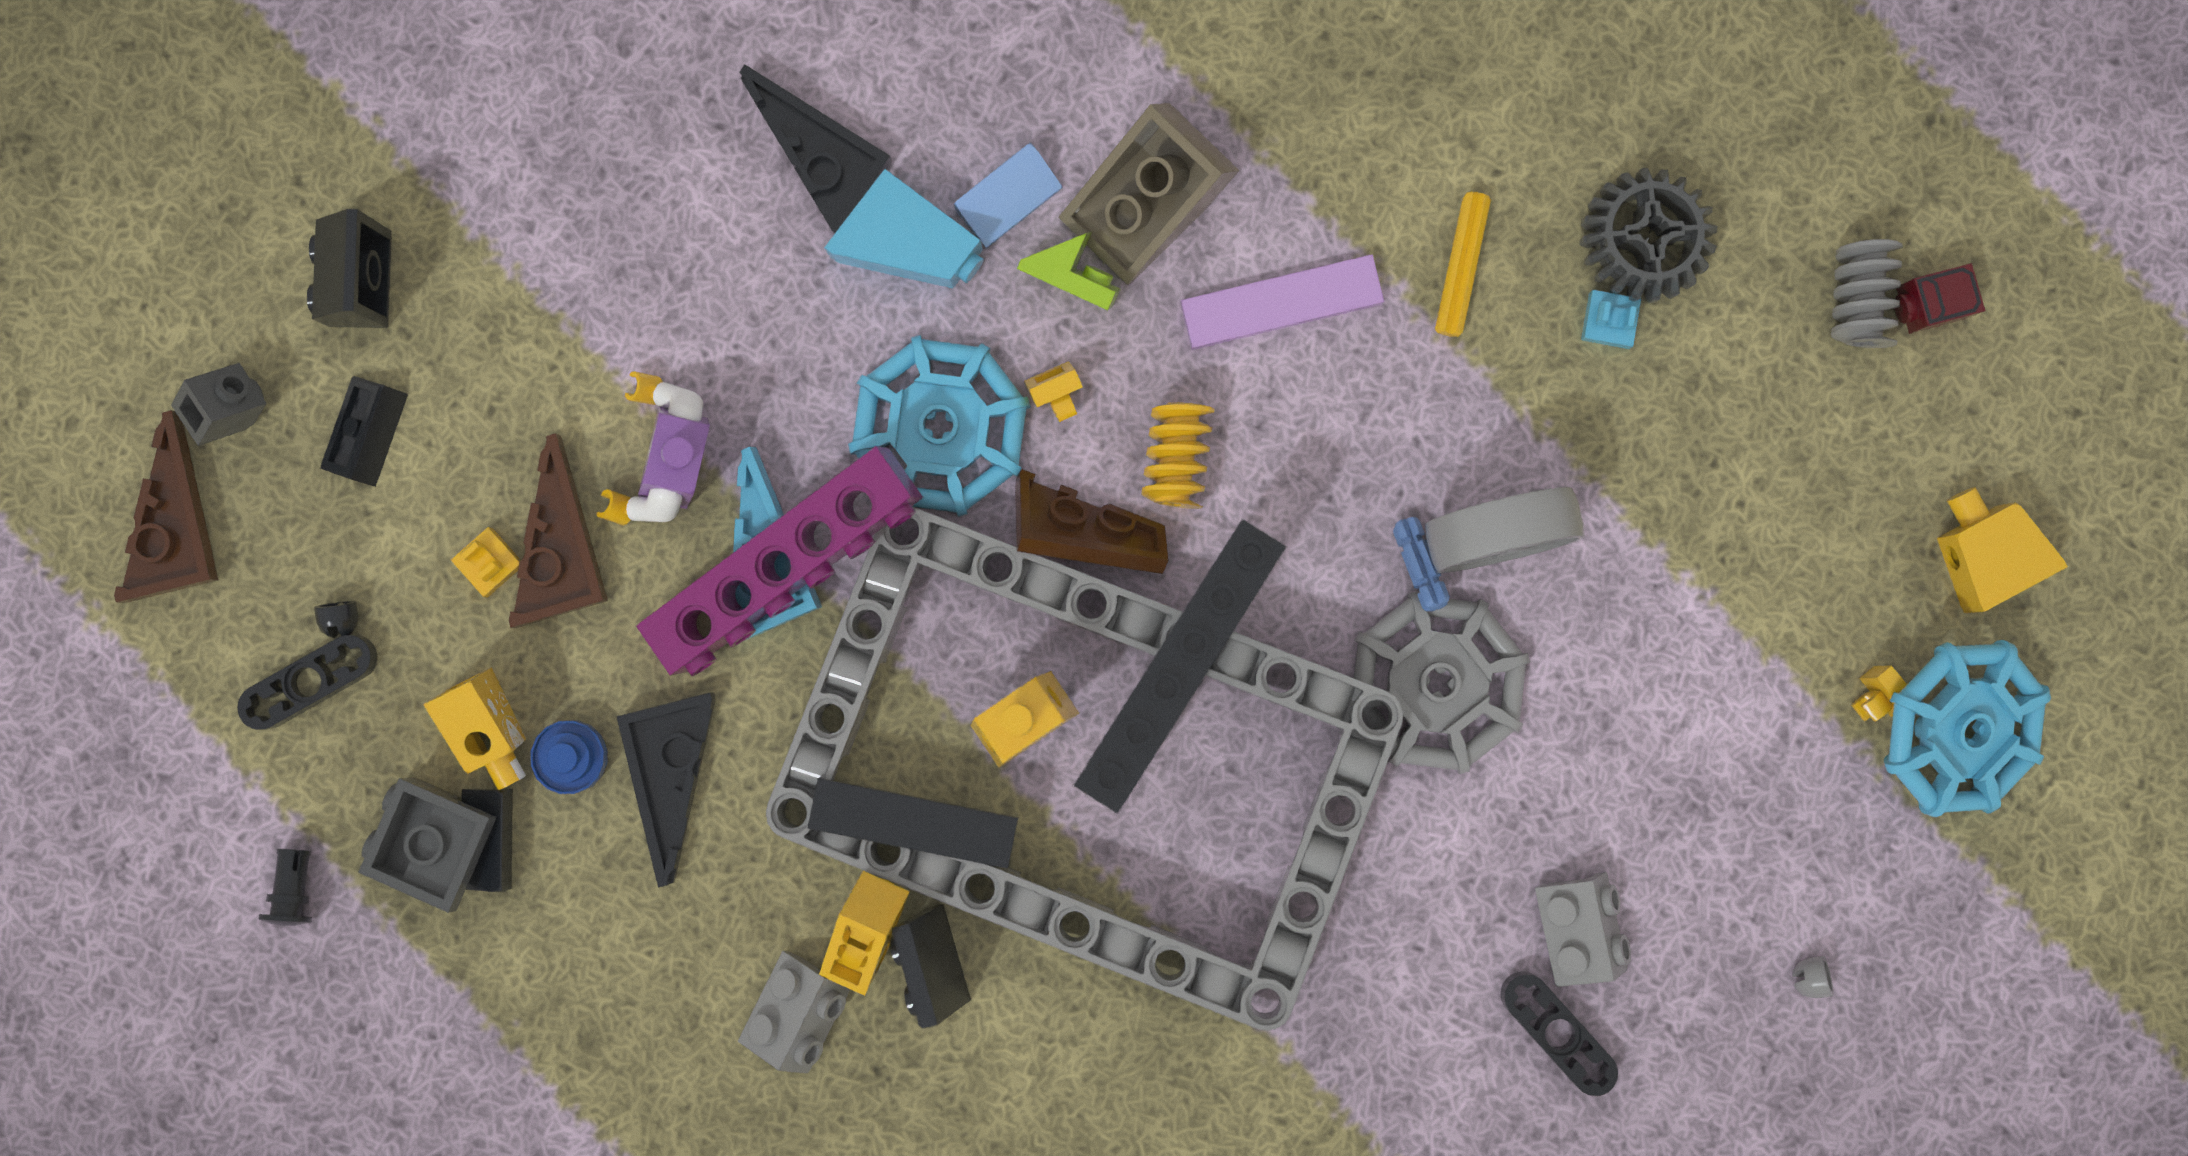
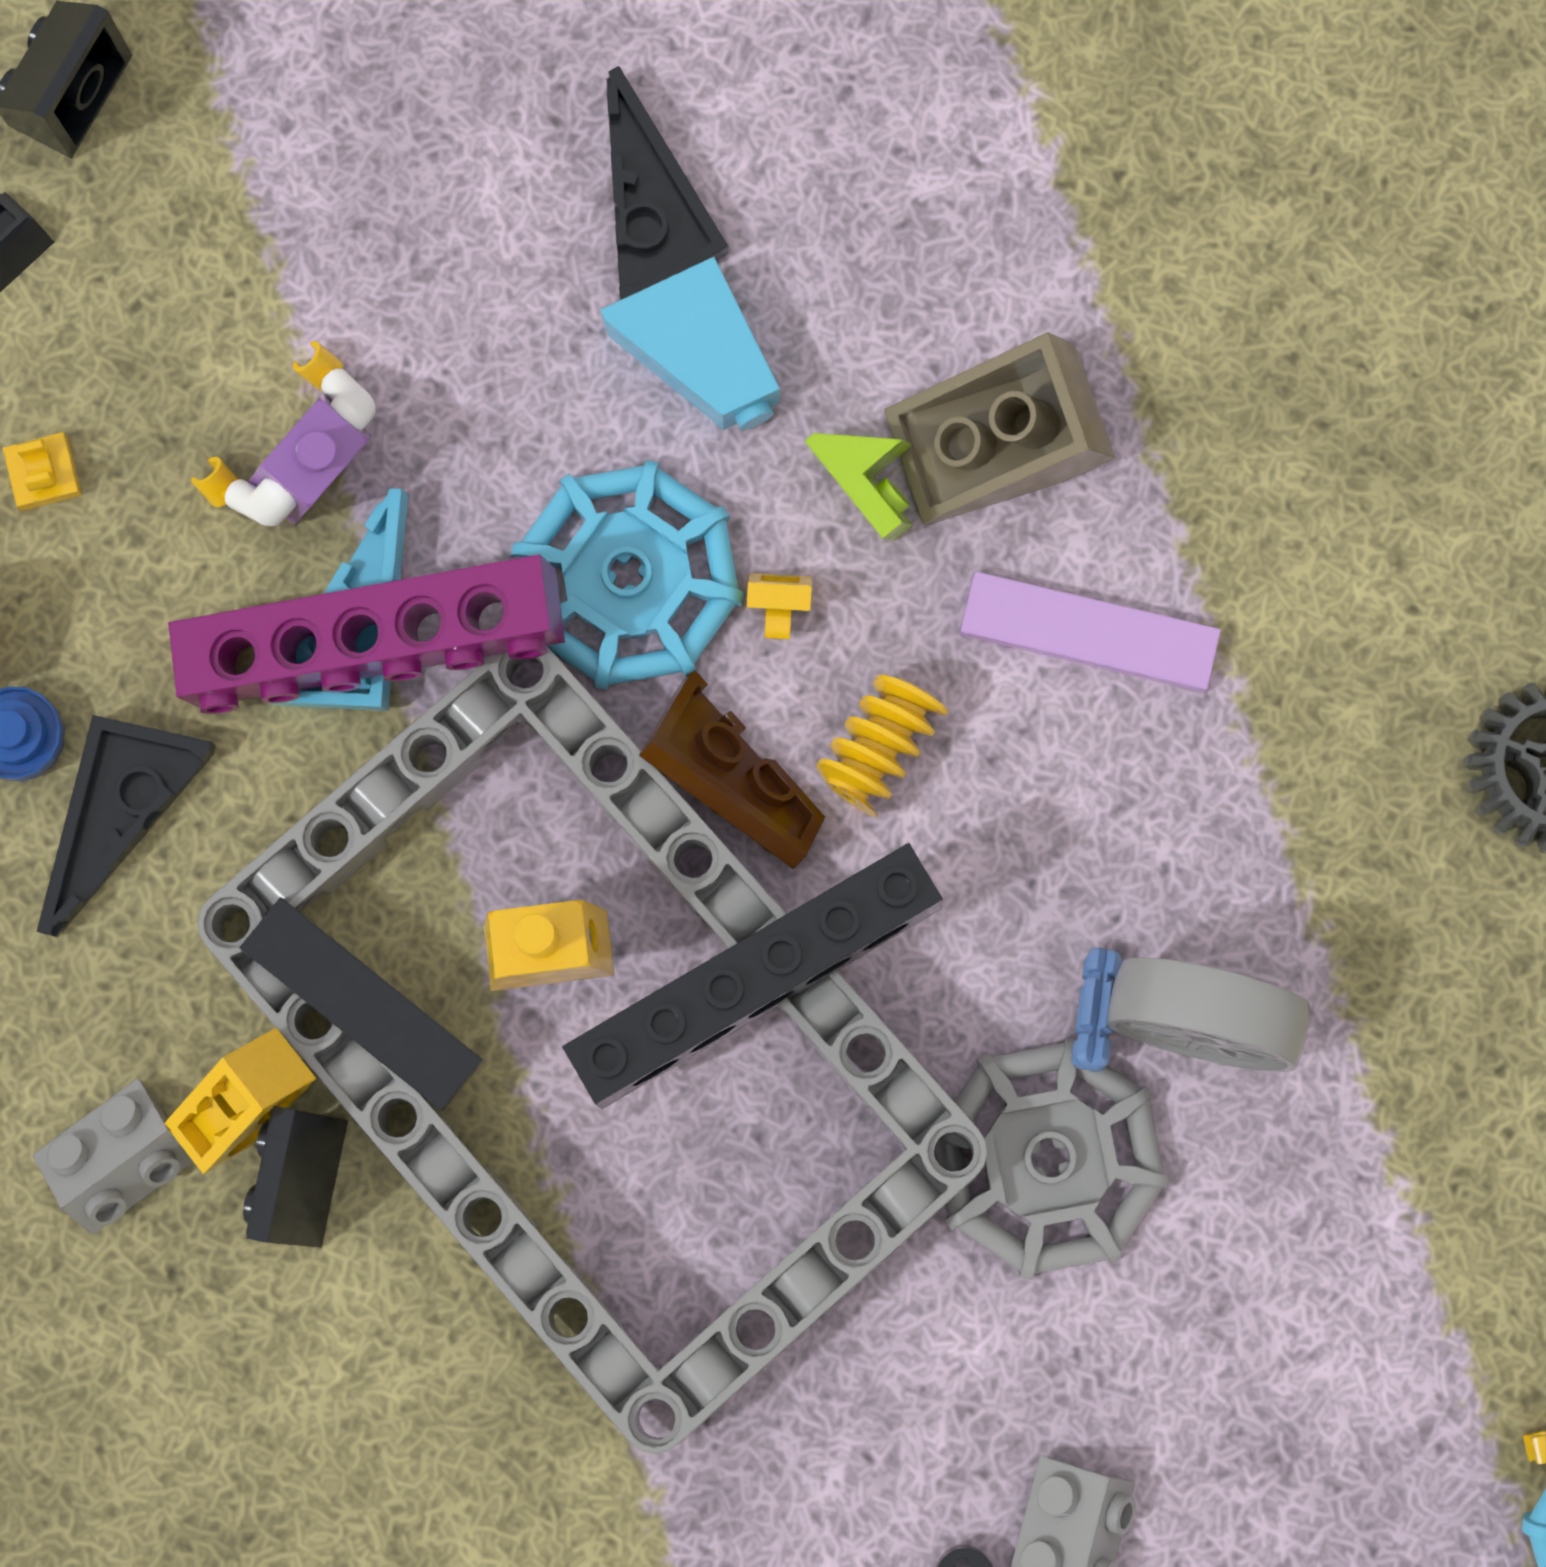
camera: 30 degrees right, 5 degrees down
(559, 559) = (122, 510): reddish brown wing -> none
(1007, 195) = (838, 356): light blue slope -> none
(1462, 264) = (1320, 693): yellow axle -> none
(1610, 319) = (1461, 842): medium azure tile -> none

